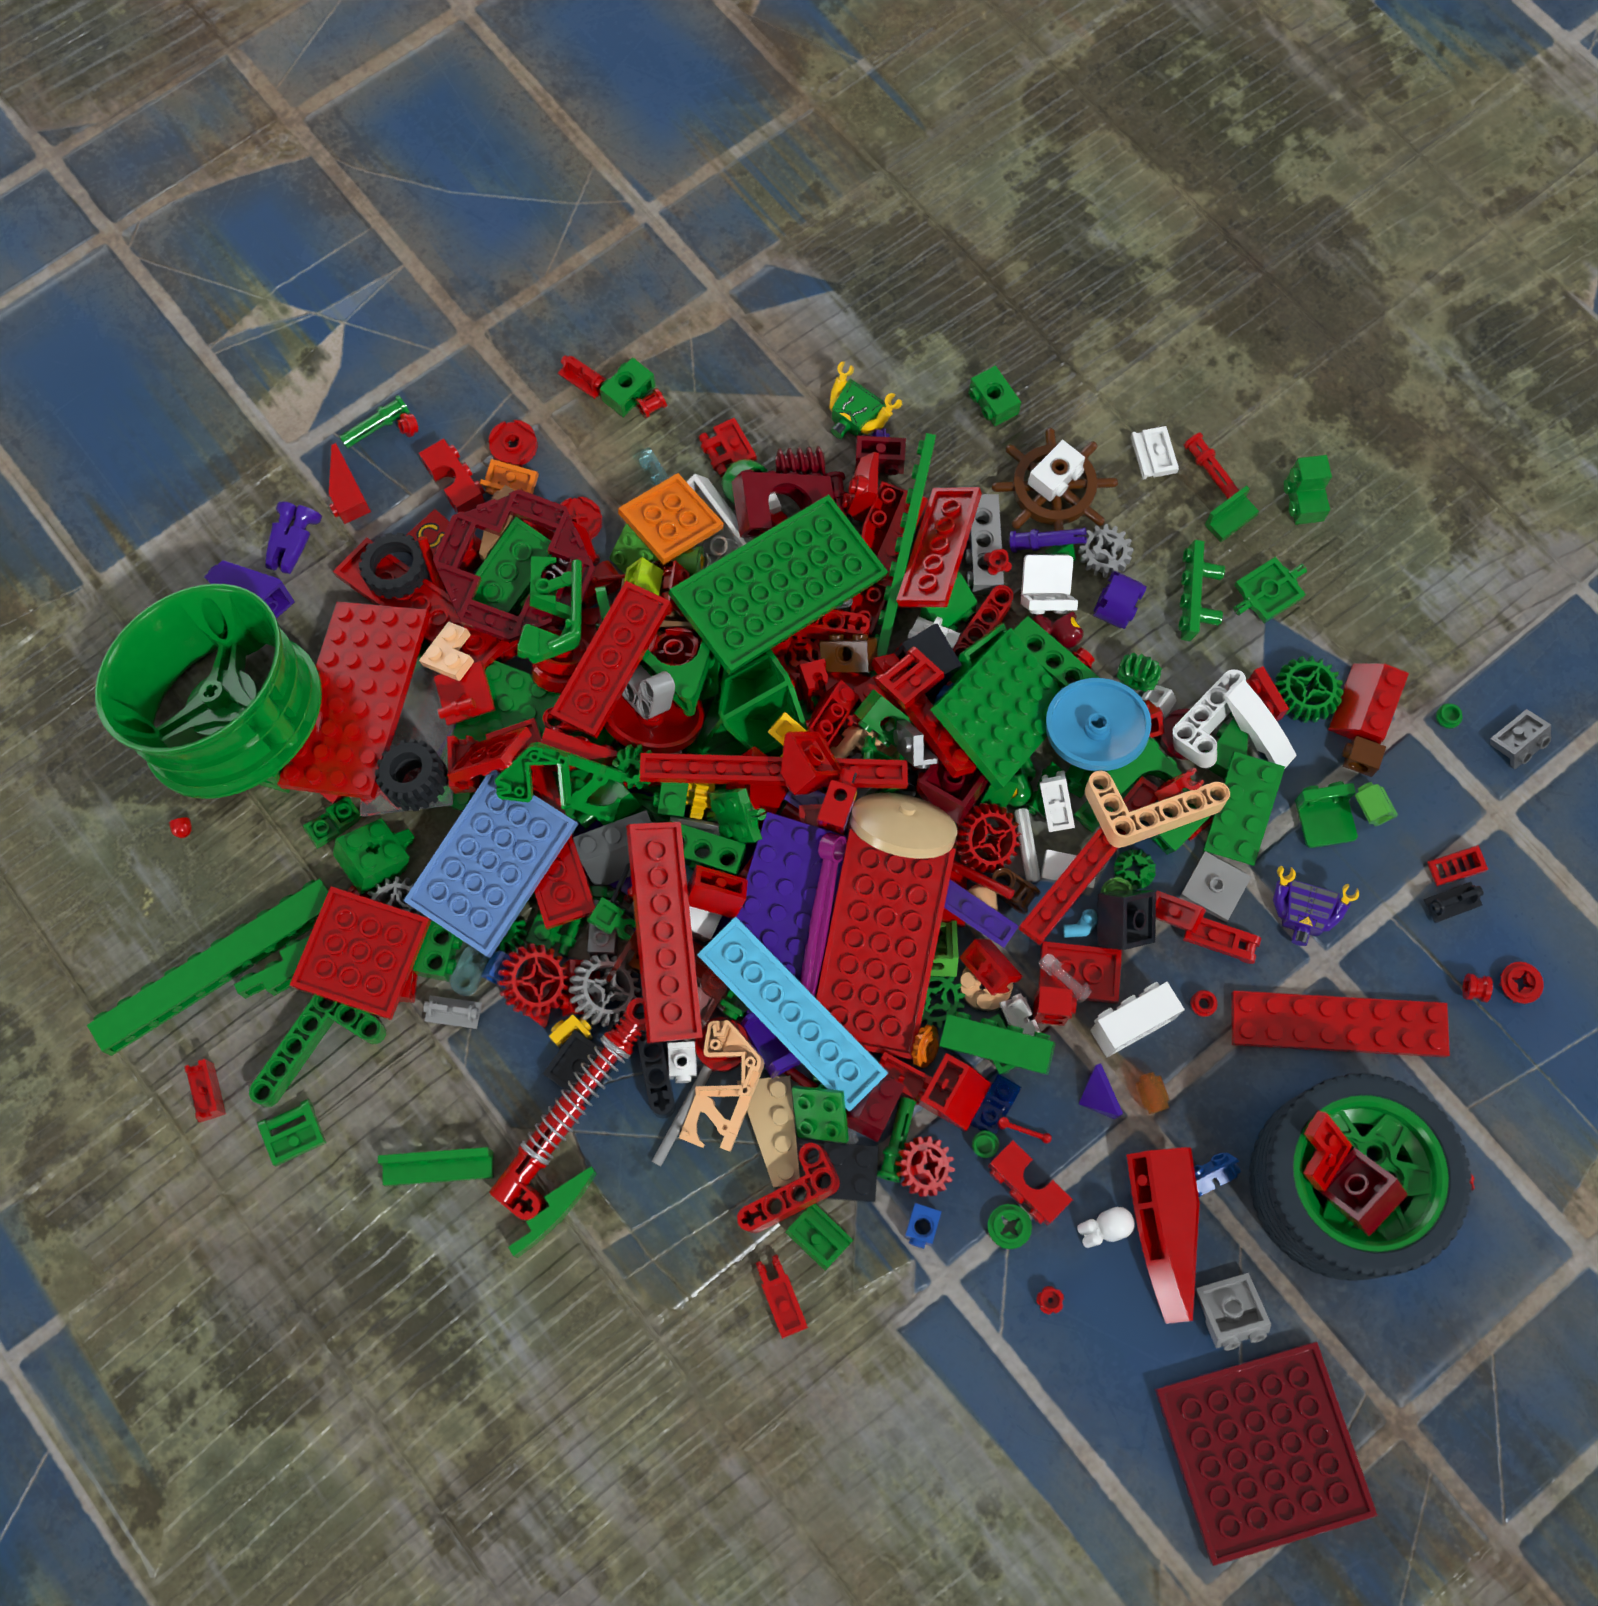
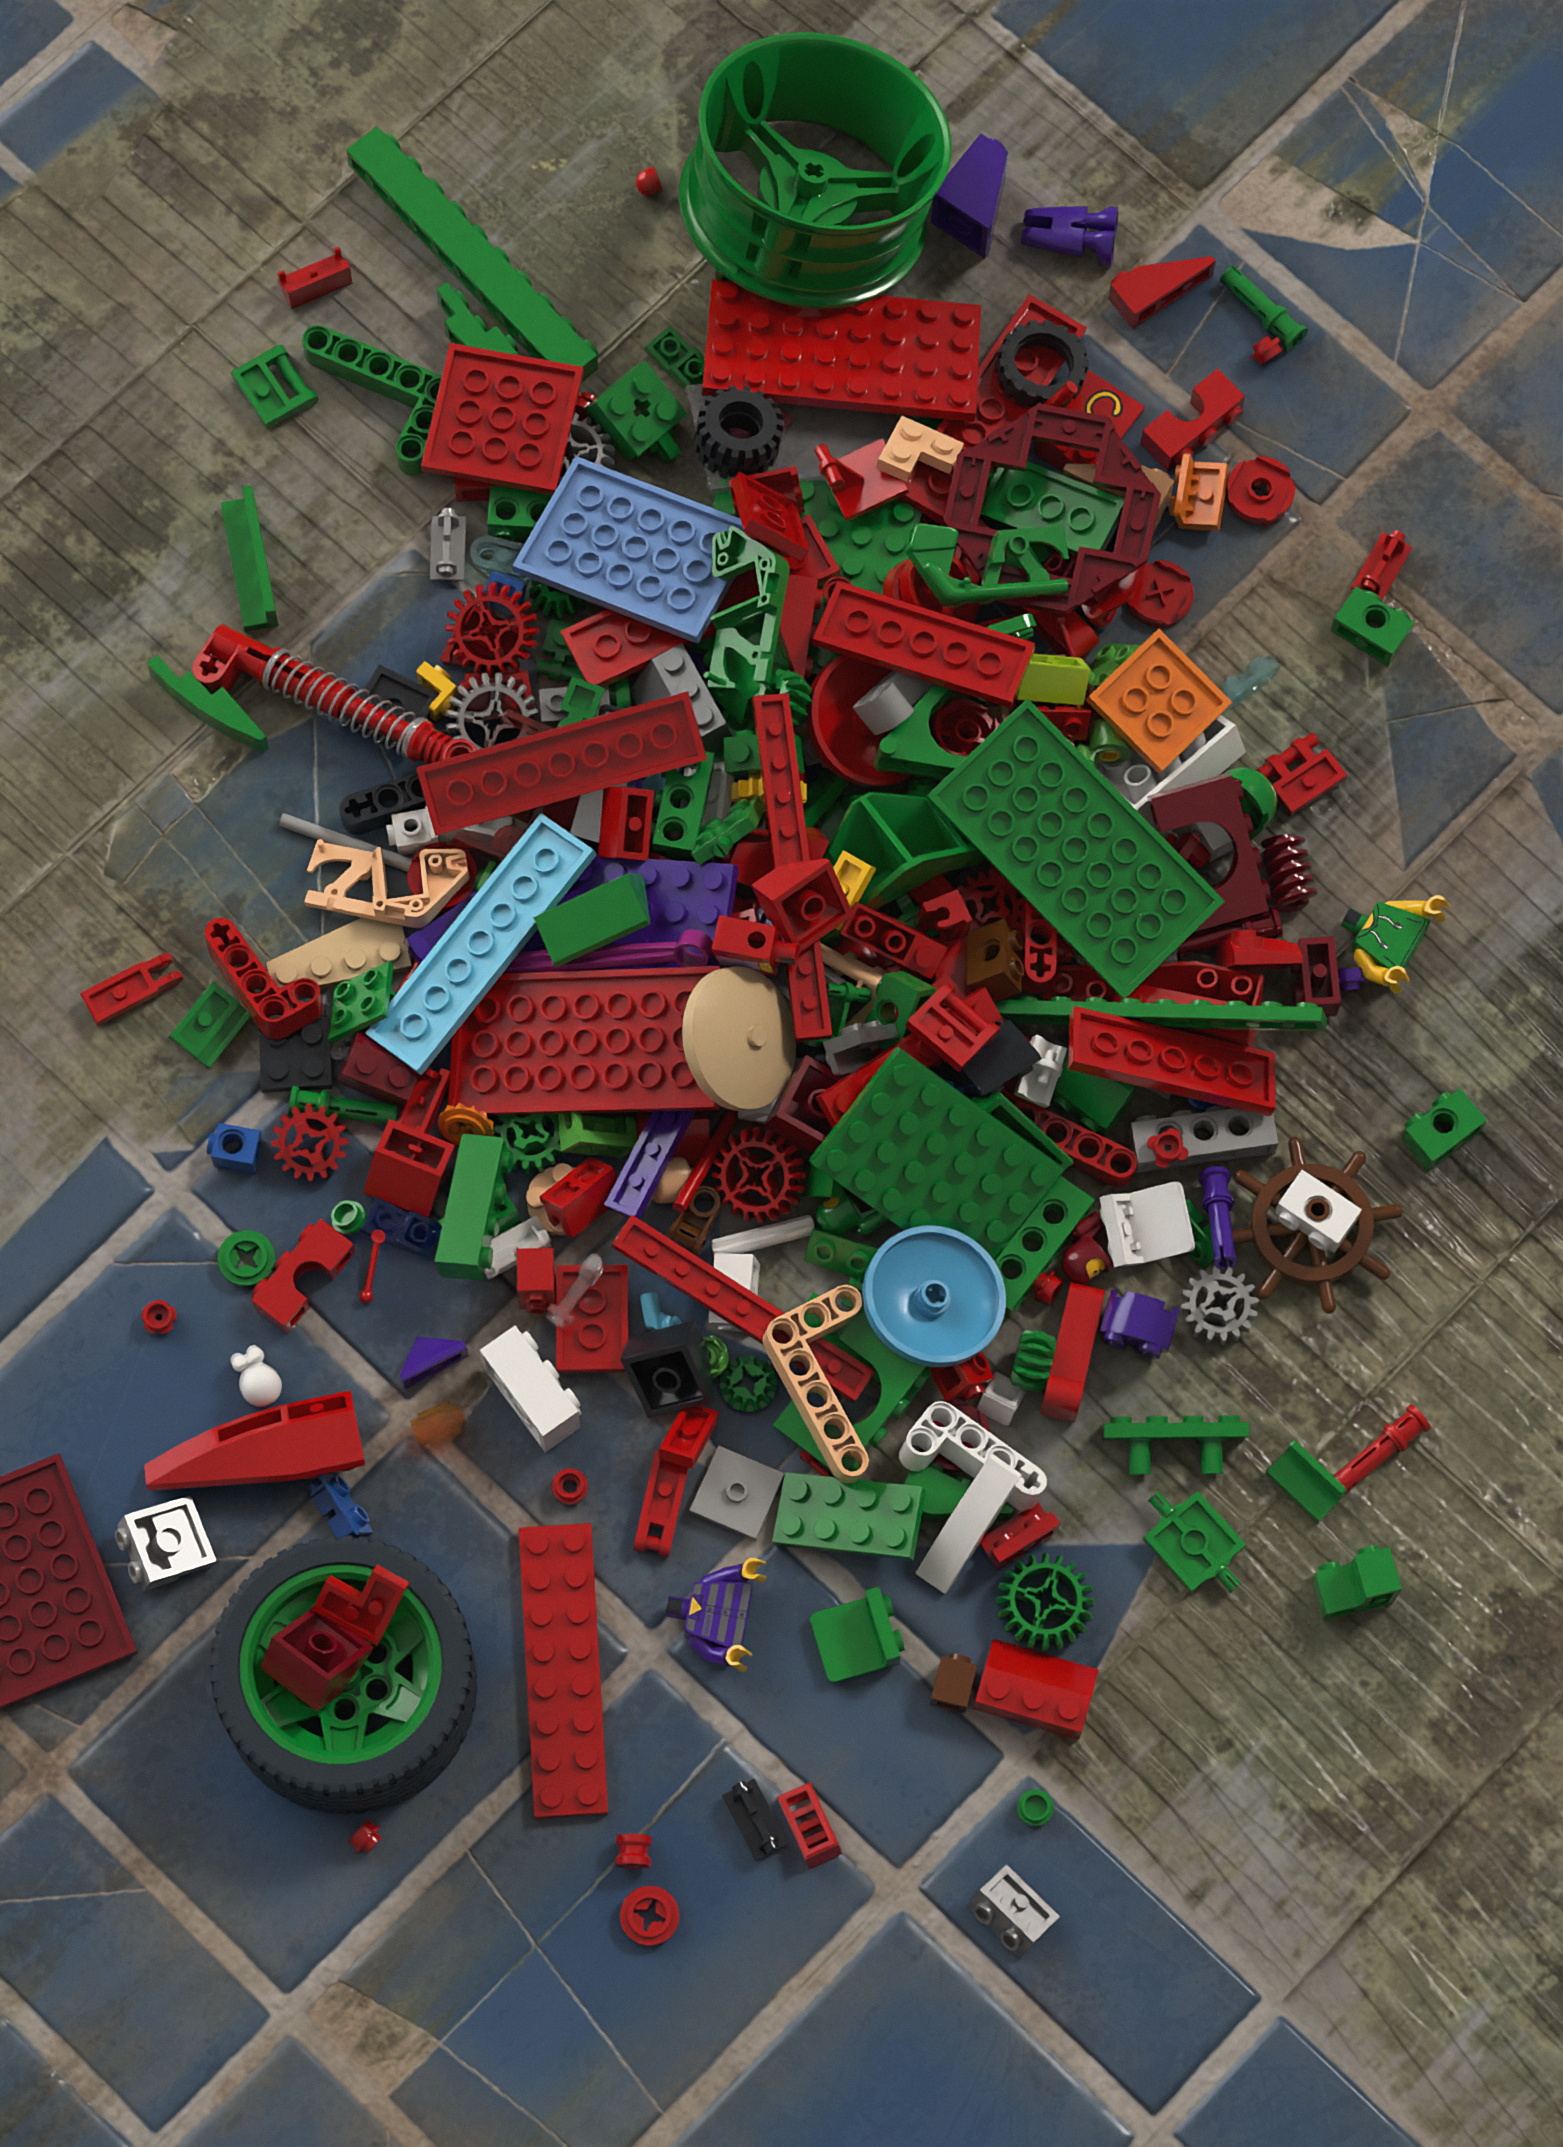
camera: 80 degrees right, 0 degrees up
(651, 403) = (1353, 661): red bush -> none
(792, 920) = (594, 918): none -> green slope
(1057, 802) = (823, 1262): white hinge -> none
(1118, 642) = (1073, 1352): none -> red beam
(1154, 452) = (1390, 1364): white plate -> none
(1175, 785) = (857, 1408): red plate -> none
(1375, 804) = (877, 1694): bright green brick -> none

